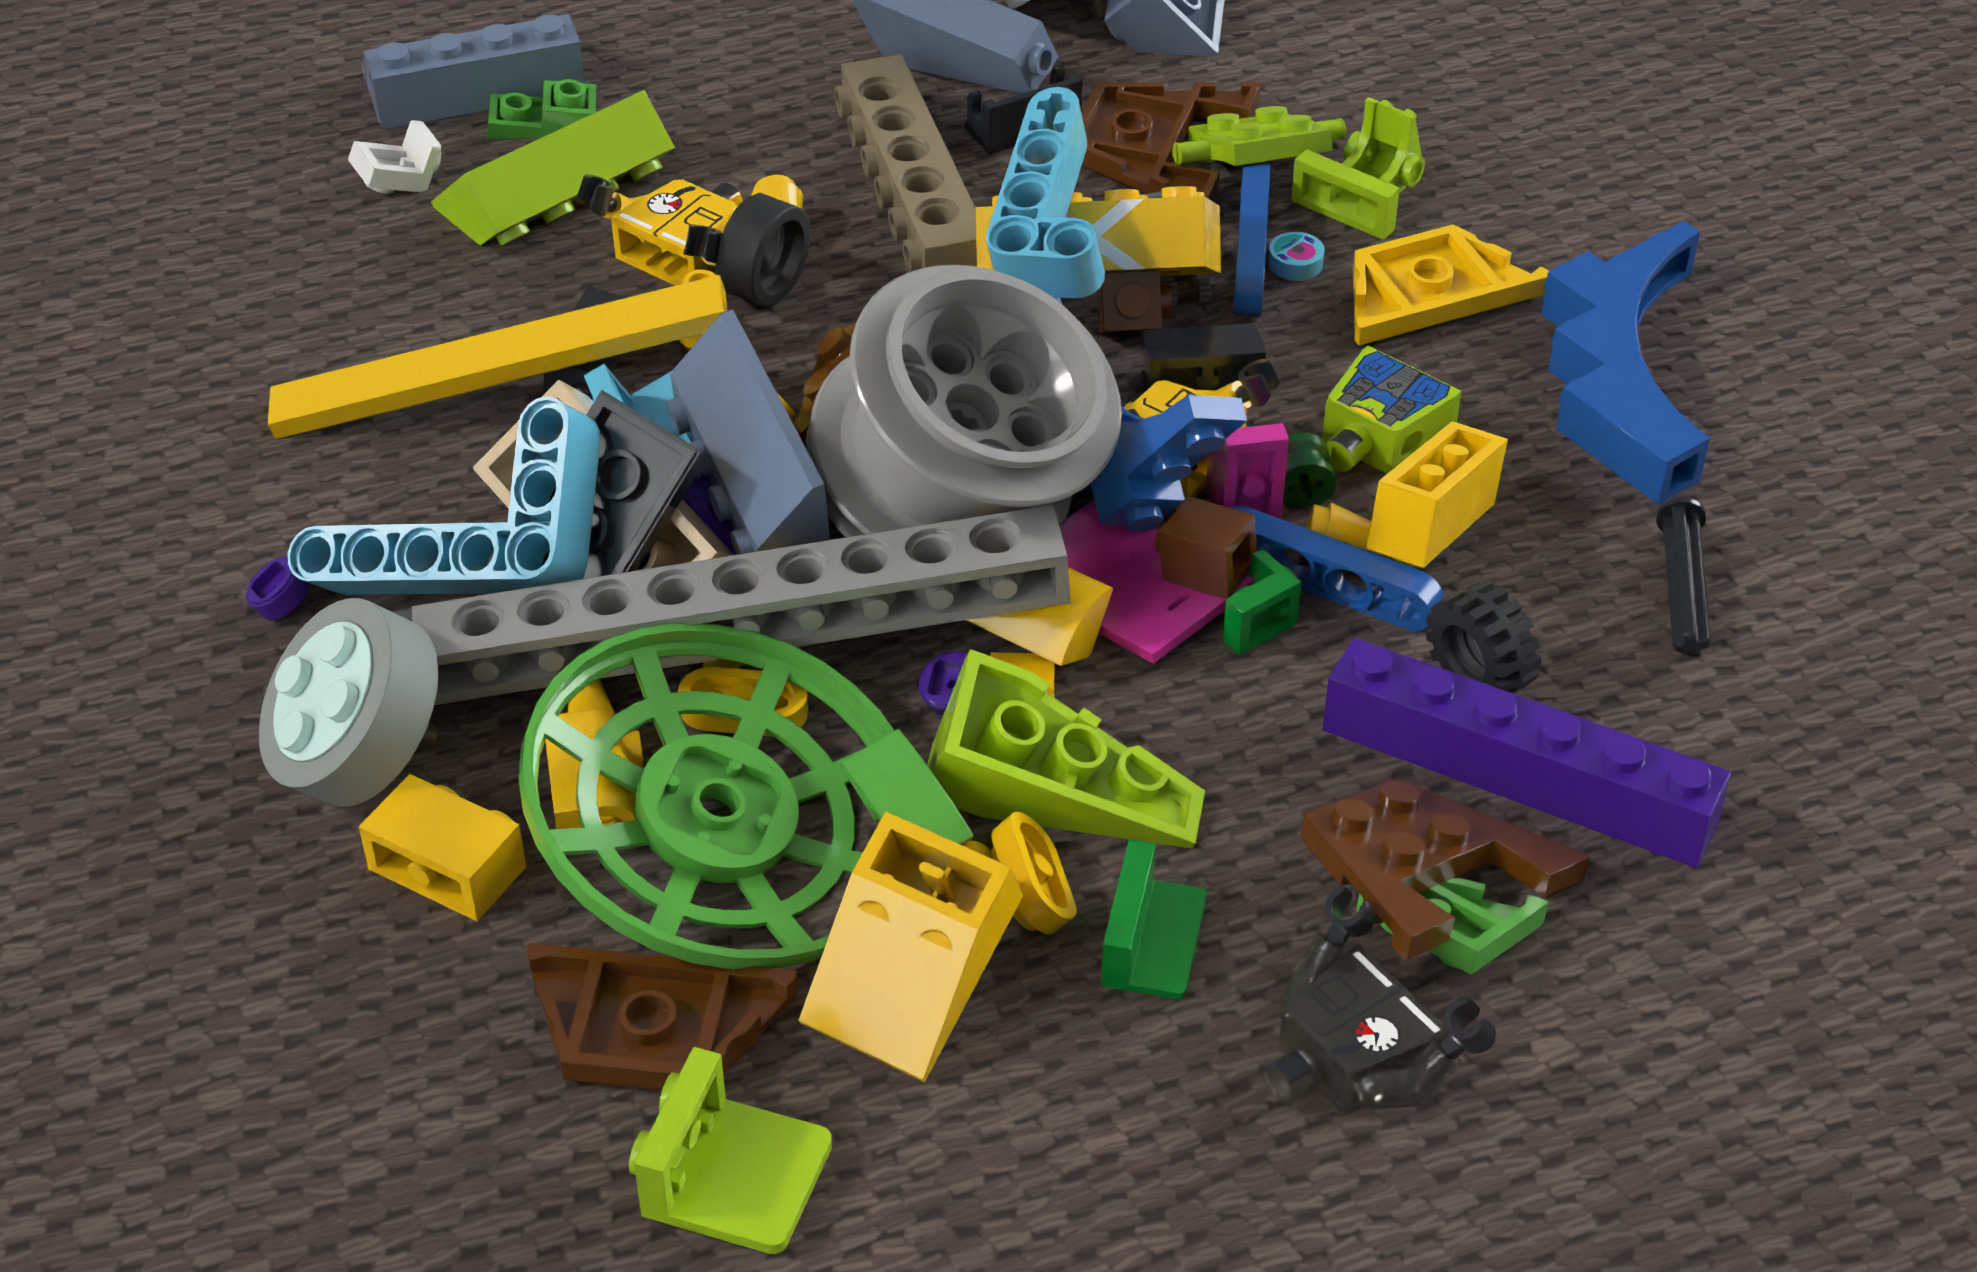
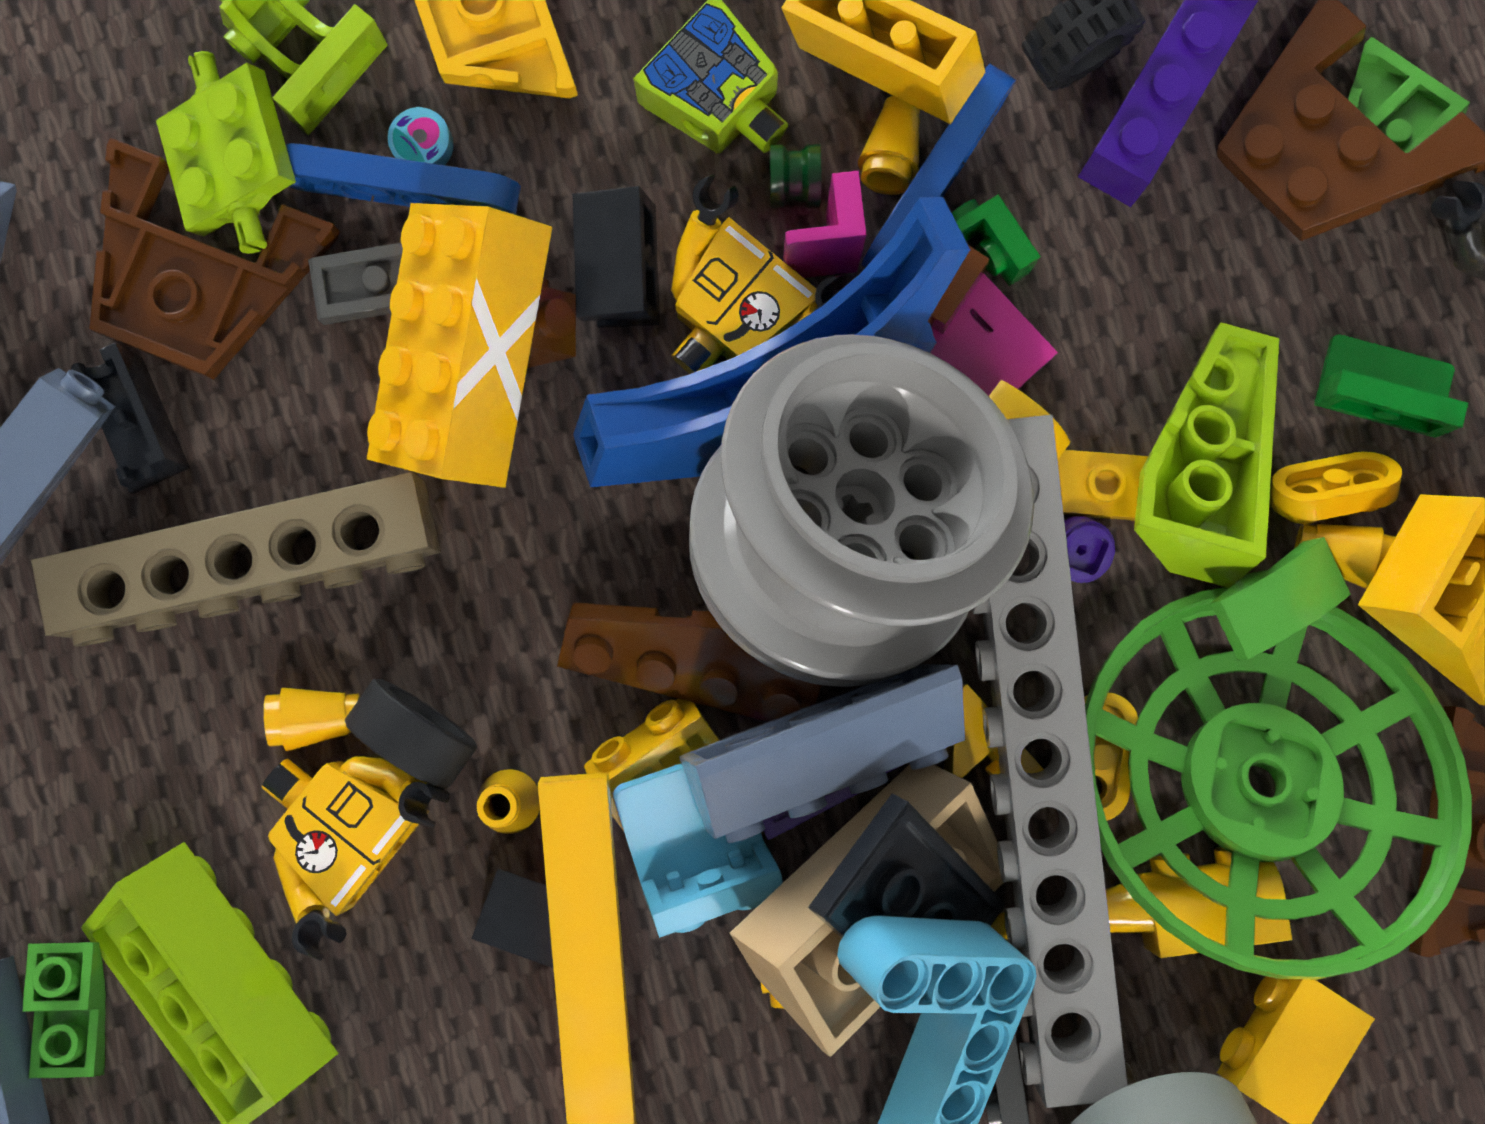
camera: 85 degrees left, 40 degrees up
(1029, 223) = (470, 384): medium azure beam -> none

